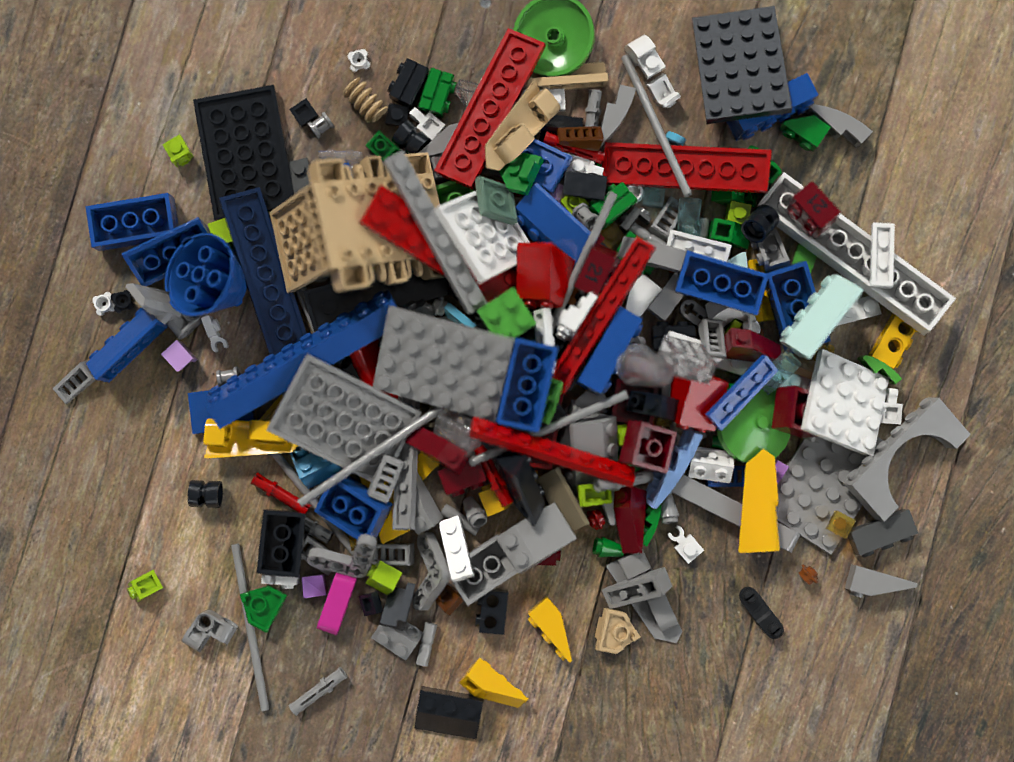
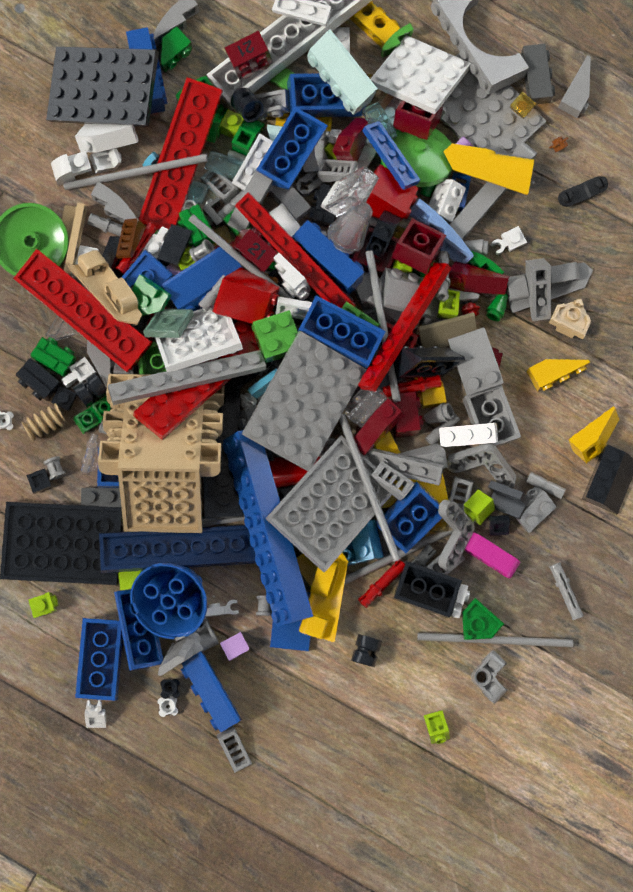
camera: 80 degrees left, 5 degrees down
(76, 232) = (95, 716): none -> white plate
(313, 585) = (471, 572): medium lavender slope -> none
(449, 599) = (511, 453): reddish brown slope -> none
(497, 611) = (531, 414): black brick -> none
(534, 237) = (211, 296): none -> light grey piece
(685, 80) = (103, 137): none -> white slope
(892, 410) = (433, 39): white plate -> none

